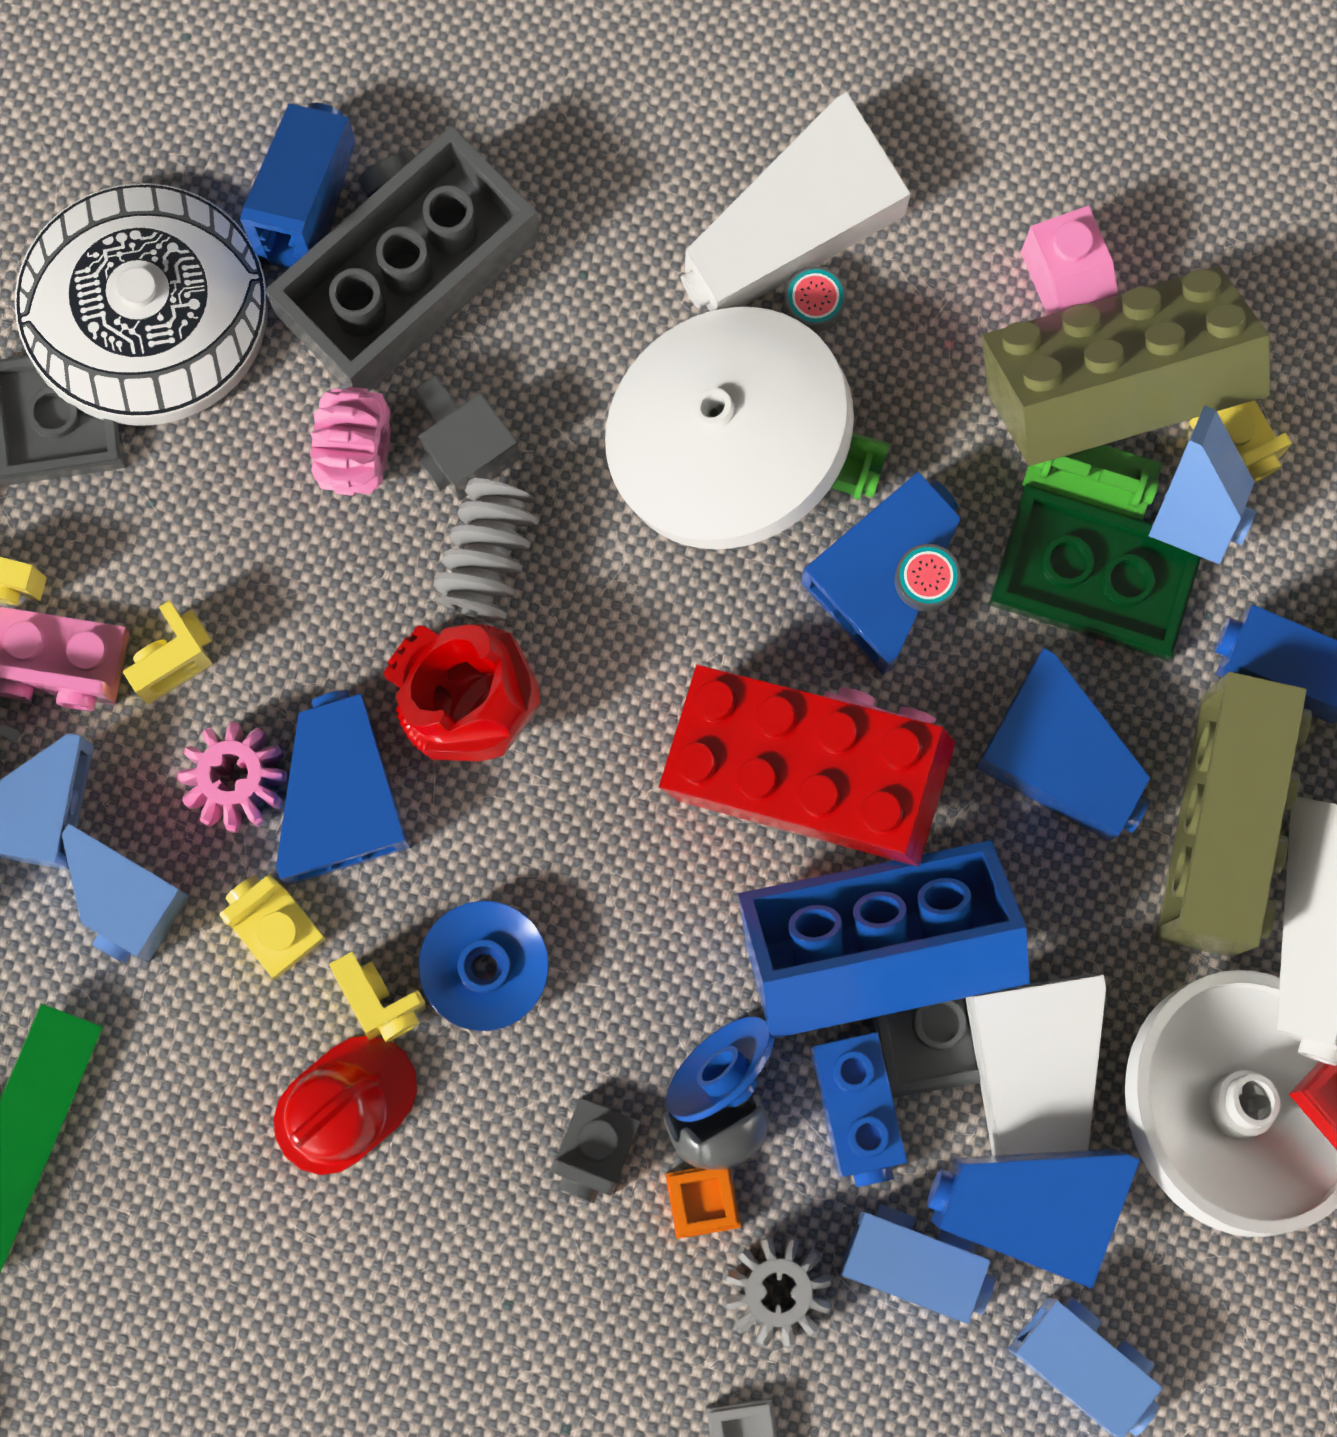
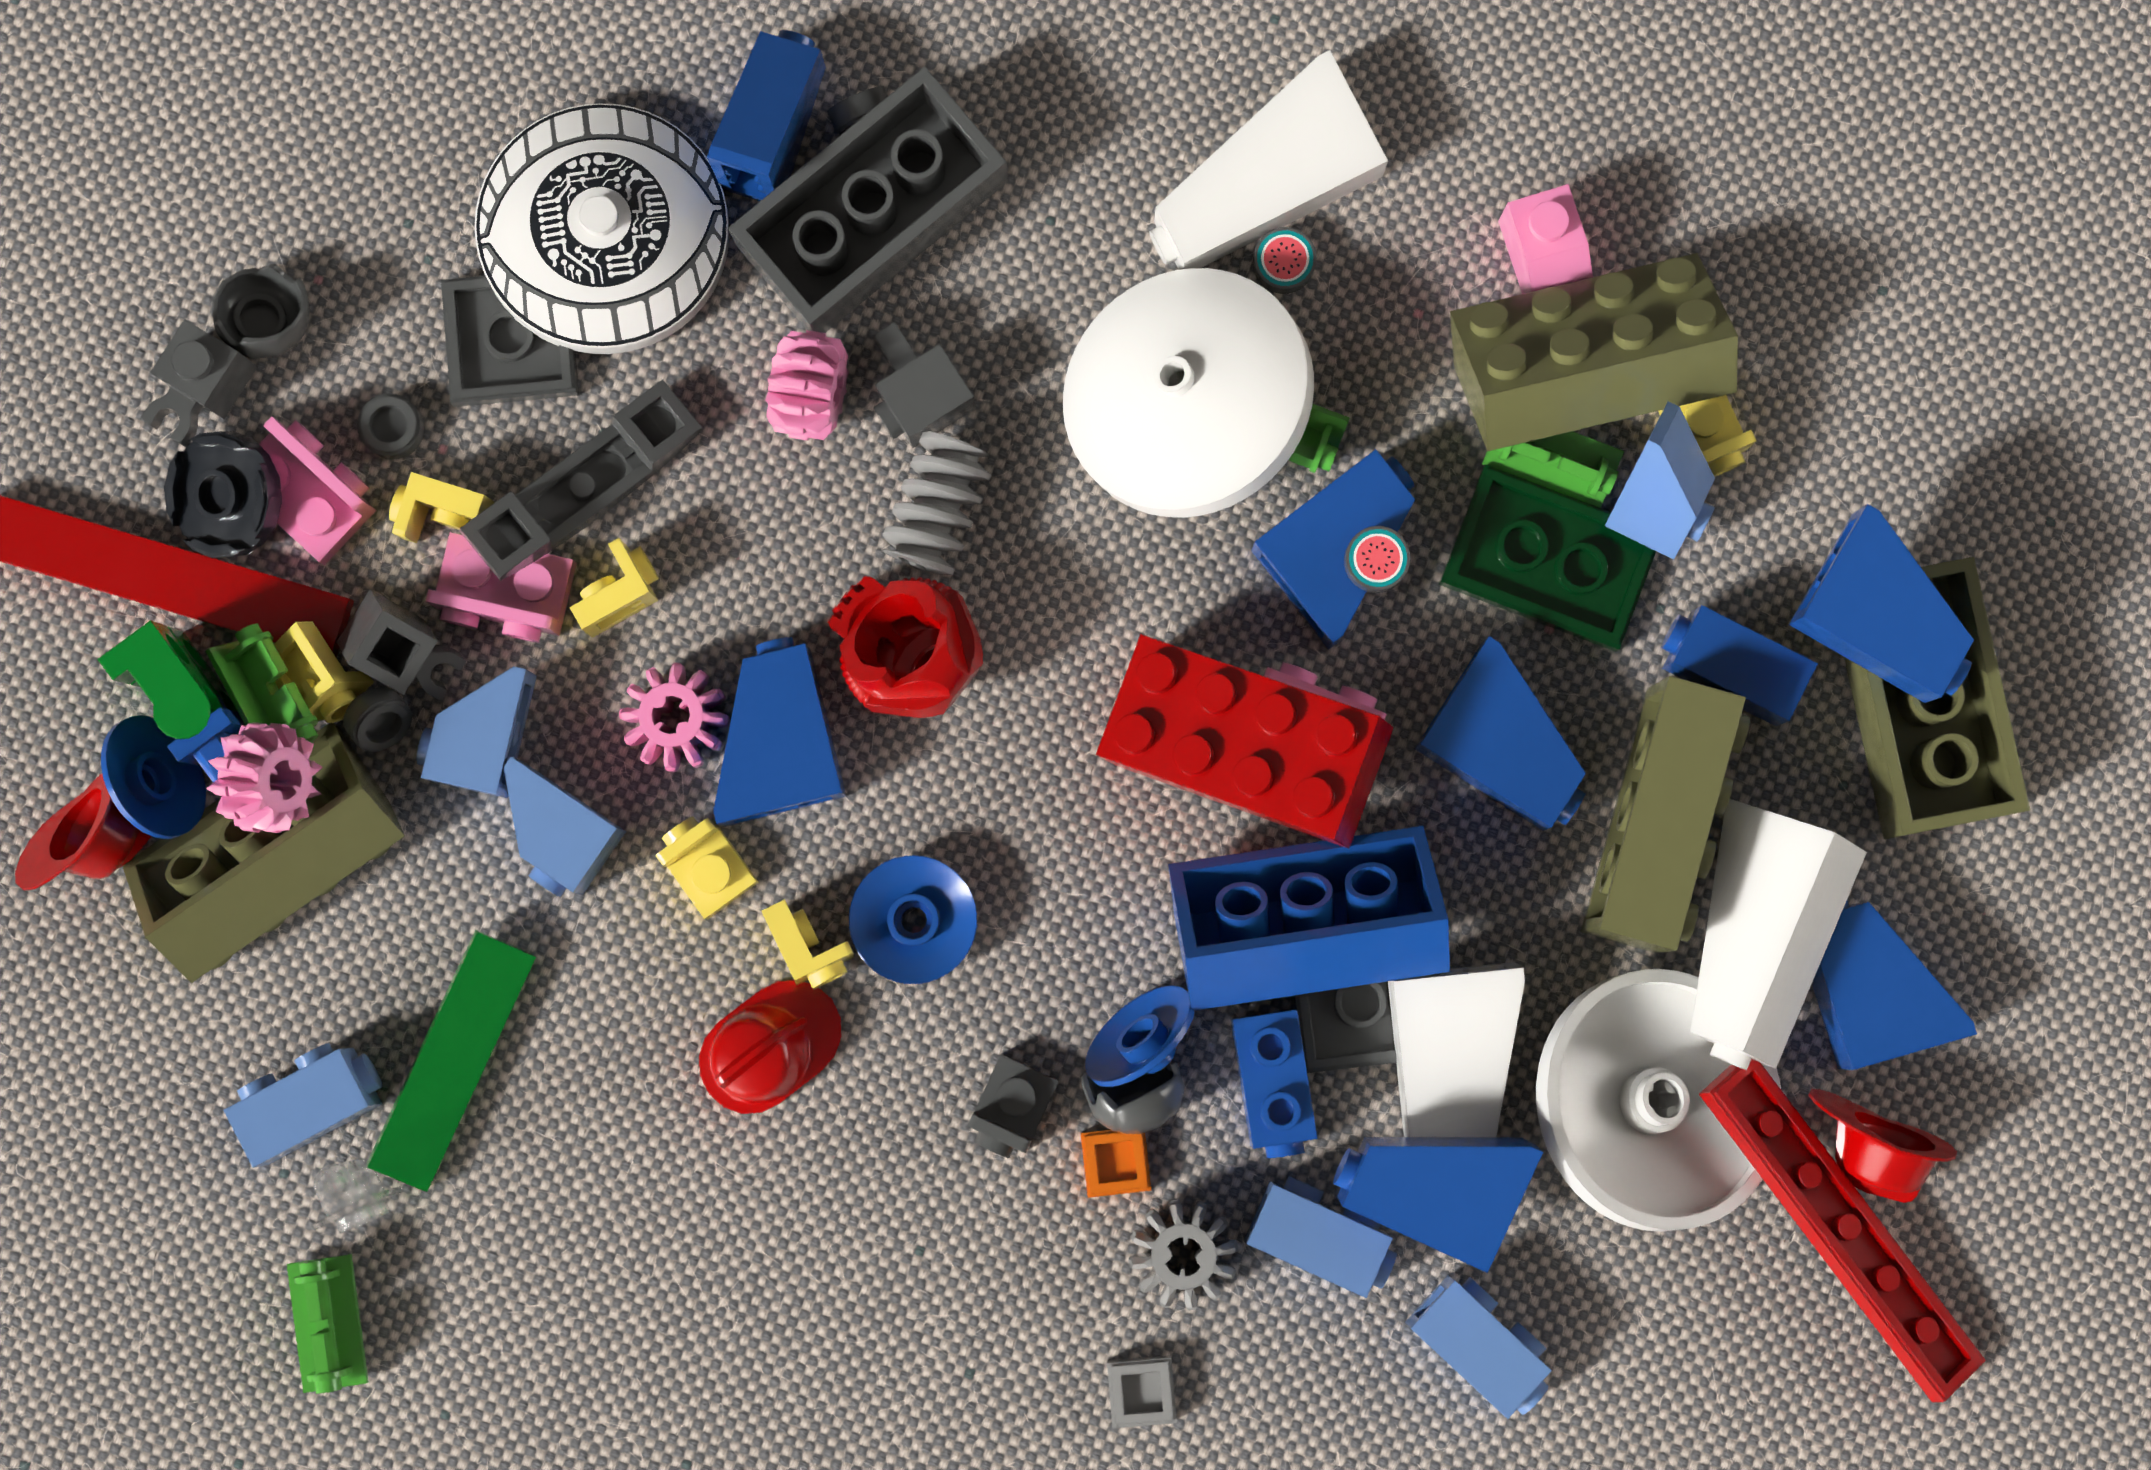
camera: 10 degrees right, 5 degrees up
(133, 553) = (584, 484): none -> dark grey slope

